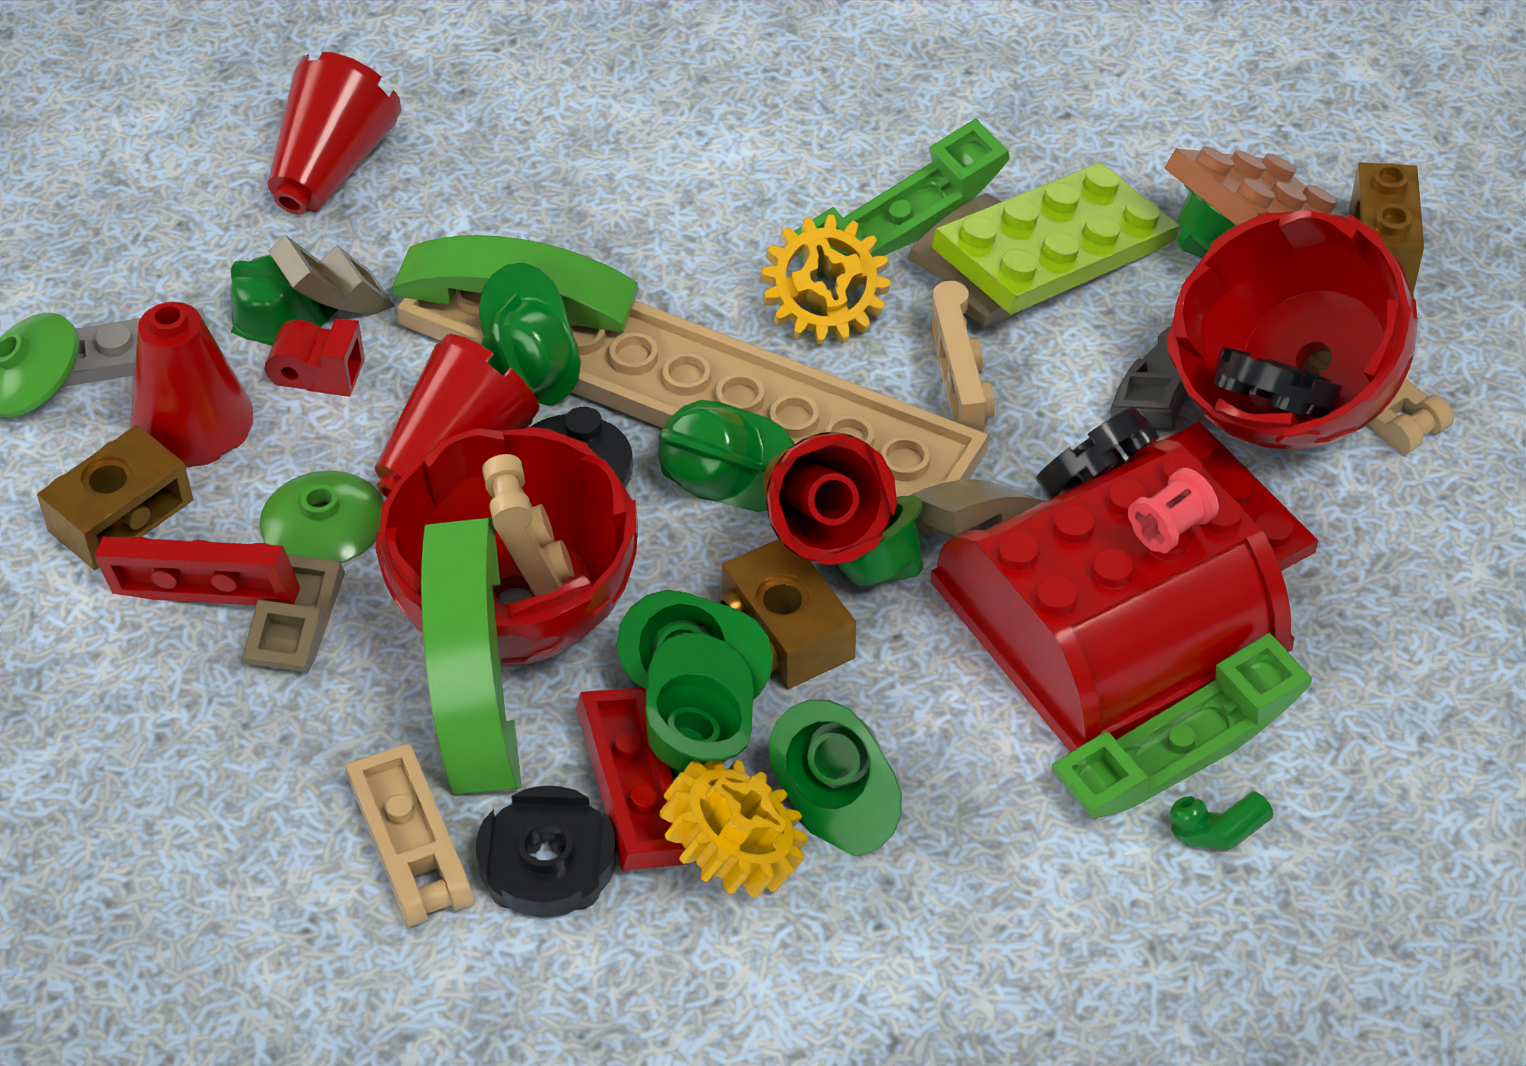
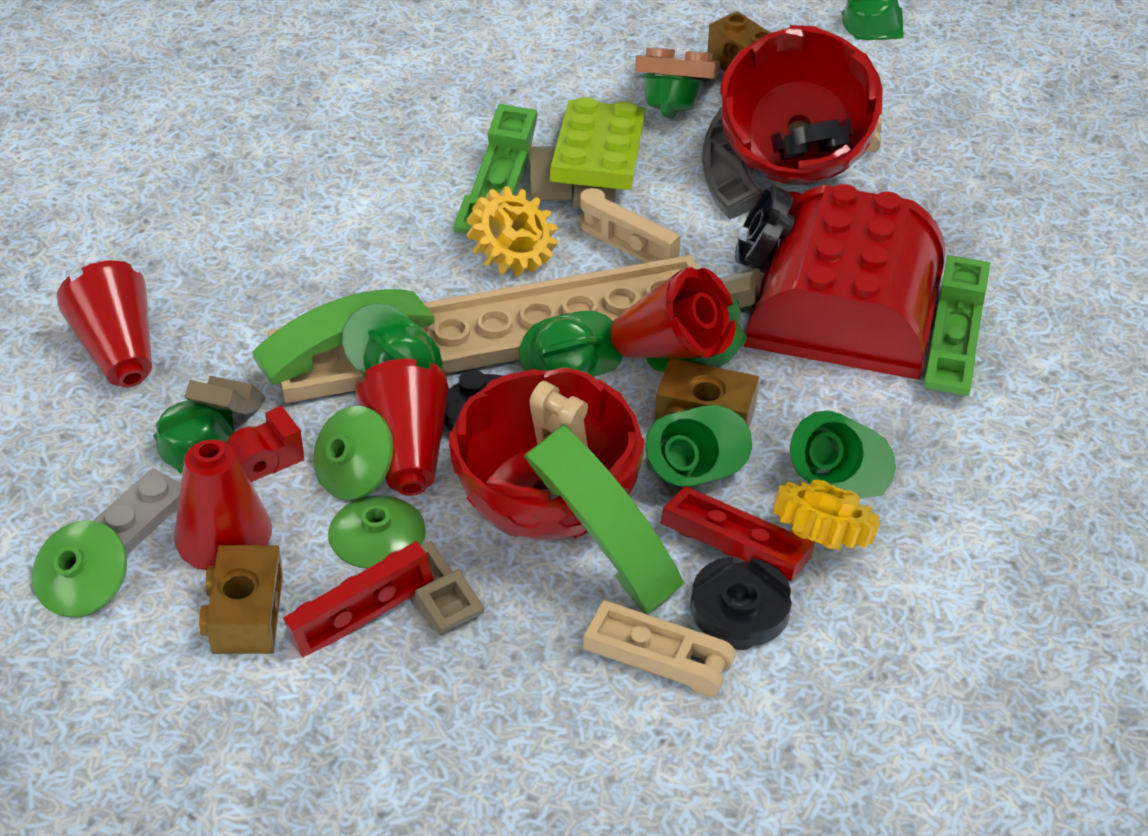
camera: 45 degrees left, 5 degrees down
(371, 417) = (365, 457): none -> bright green dish
(698, 701) = (740, 470): green piece -> none
(1173, 510) = (872, 199): coral bush -> none
(1216, 830) = (1020, 363): green arm -> none

